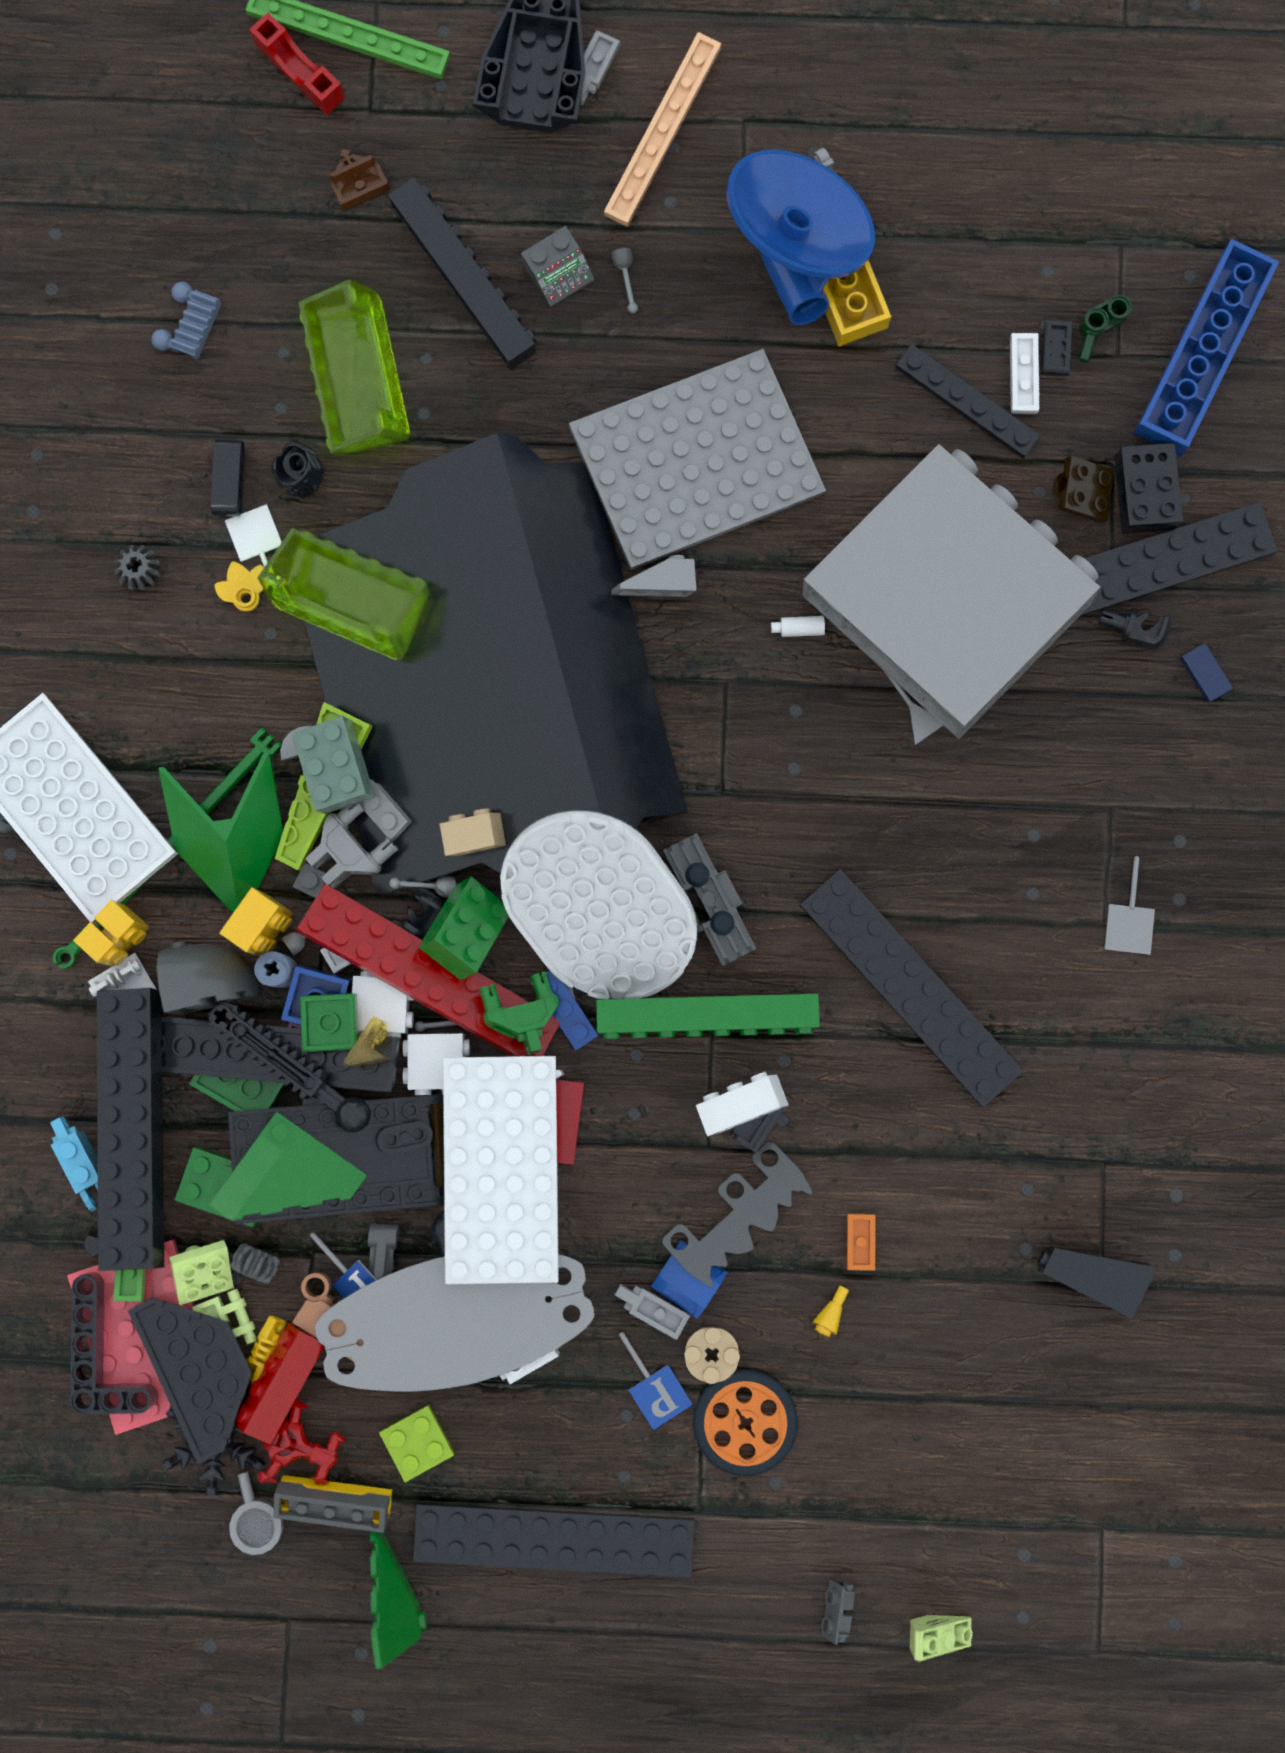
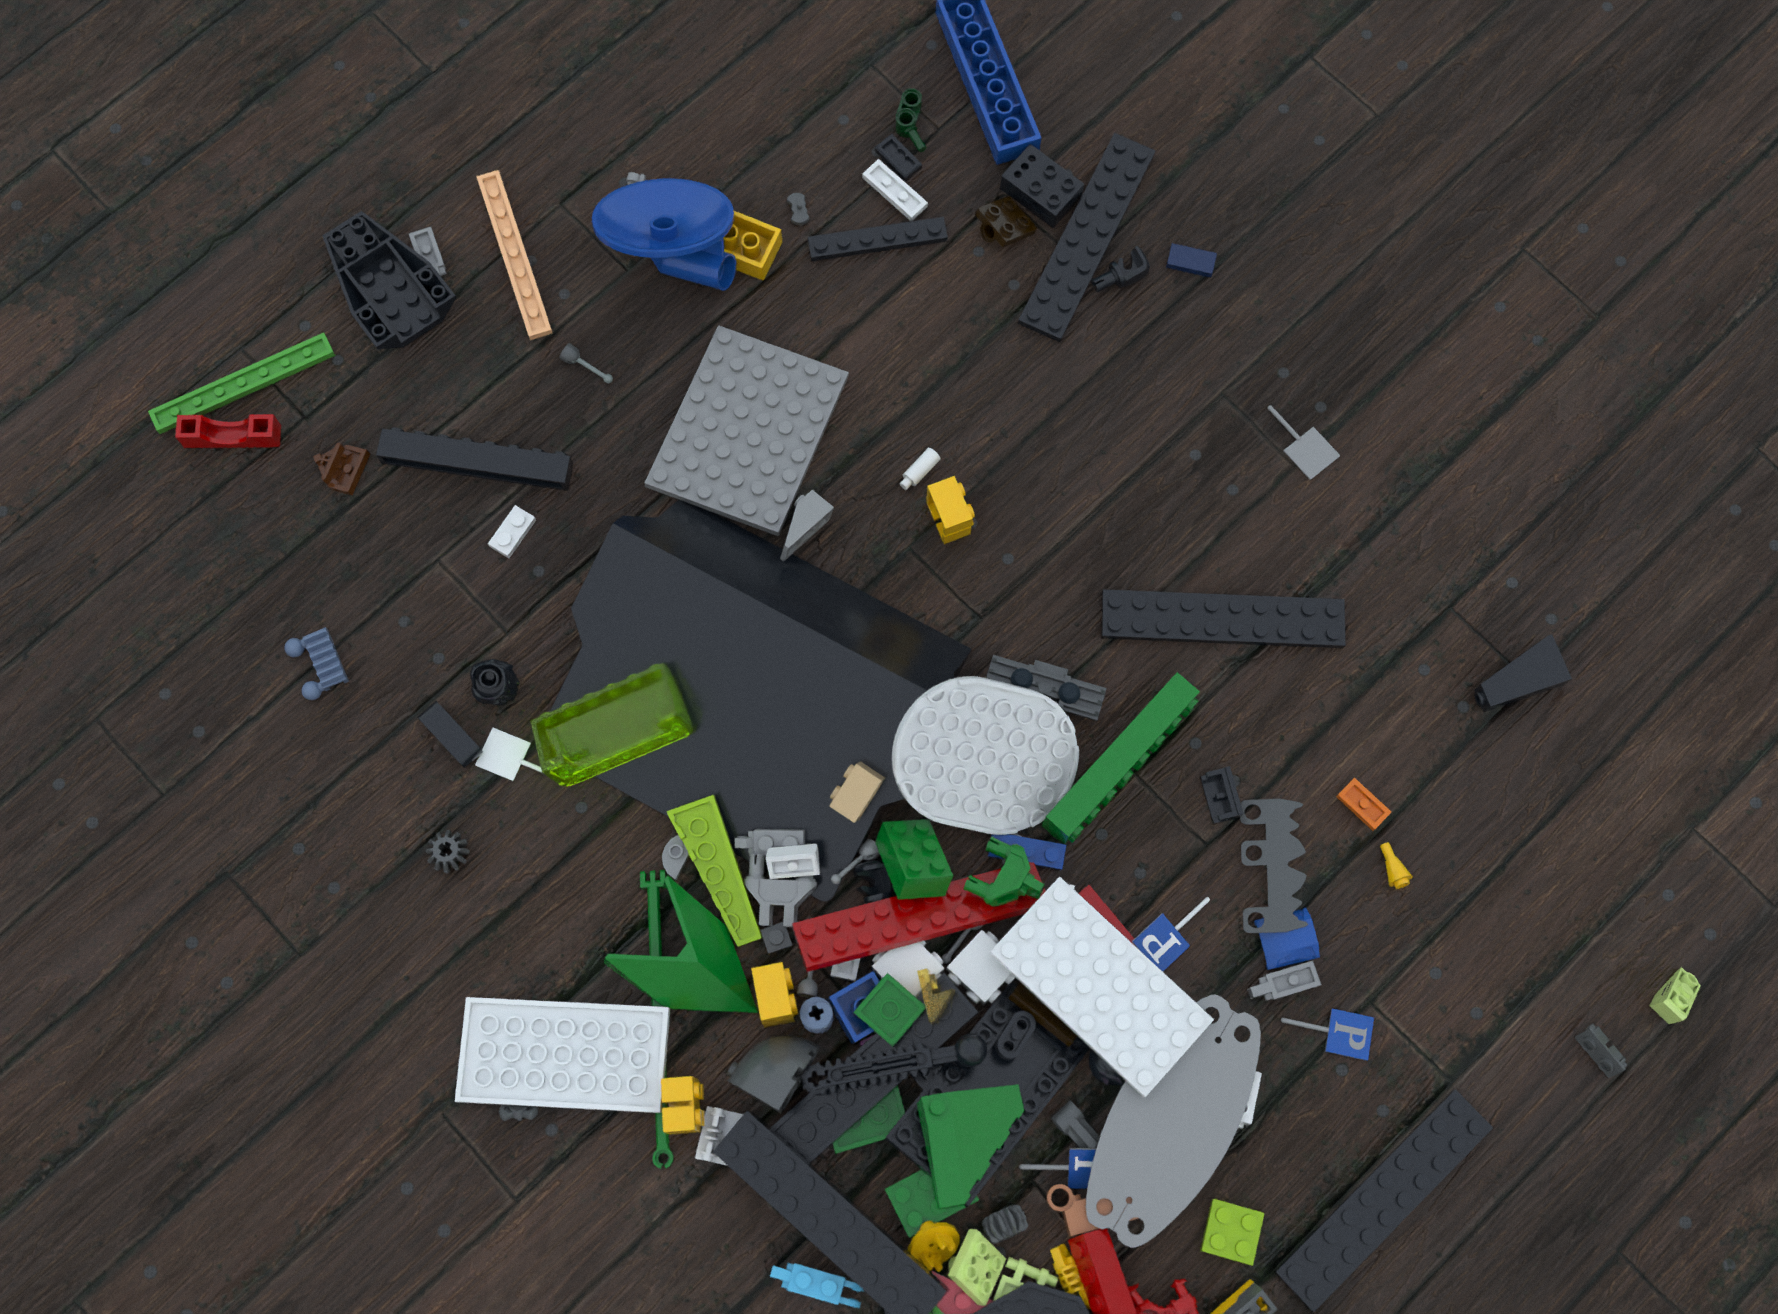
camera: 50 degrees left, 10 degrees down
(188, 1224) = (934, 1244): none -> yellow plate
(241, 583) = (529, 792): yellow plate -> none
(333, 765) = (717, 842): sand green brick -> none
(353, 368) = (464, 585): clear neon green windscreen -> none
(376, 836) = (793, 861): none -> white slope
(433, 361) = (512, 531): none -> white plate
(557, 266) = (533, 398): dark grey slope -> none
(593, 1183) = (1162, 941): none -> blue piece
(711, 1370) = (1341, 982): tan plate -> none
(741, 1103) = (1201, 792): white brick -> none
(766, 1454) = (1397, 1020): wedge -> none
(783, 682) = (947, 503): none -> yellow piece
(922, 720) = (1055, 452): light grey piece -> none
(933, 309) = (798, 209): none -> dark grey piece
(951, 588) = (991, 354): light grey brick -> none

